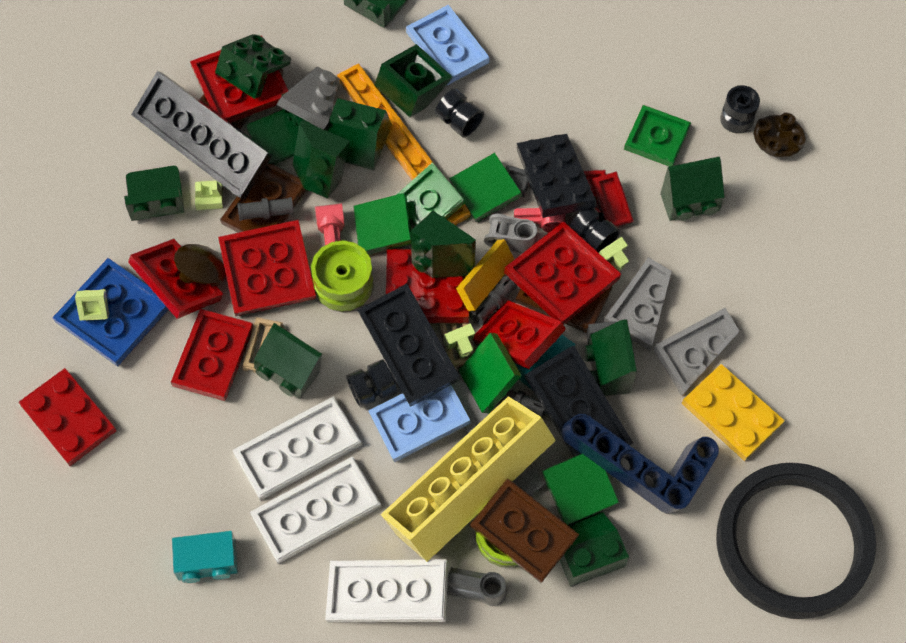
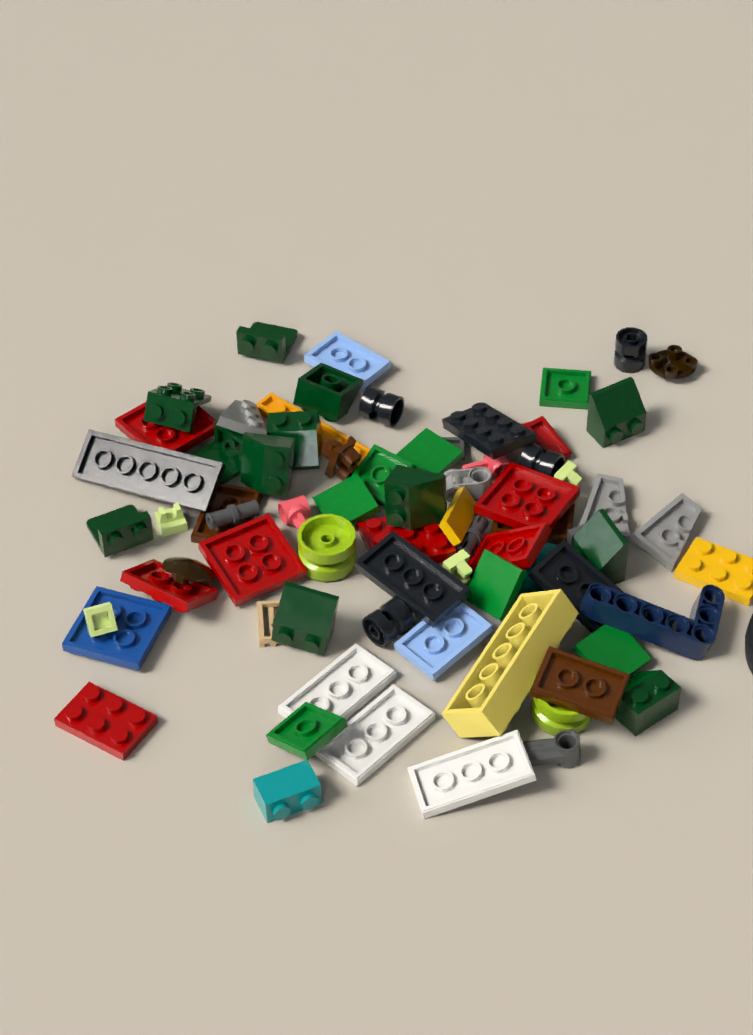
camera: 15 degrees left, 20 degrees down
(212, 354) = (227, 638): red plate -> none
(244, 494) = (306, 730): none -> green tile
(393, 168) = (341, 458): none -> reddish brown hips

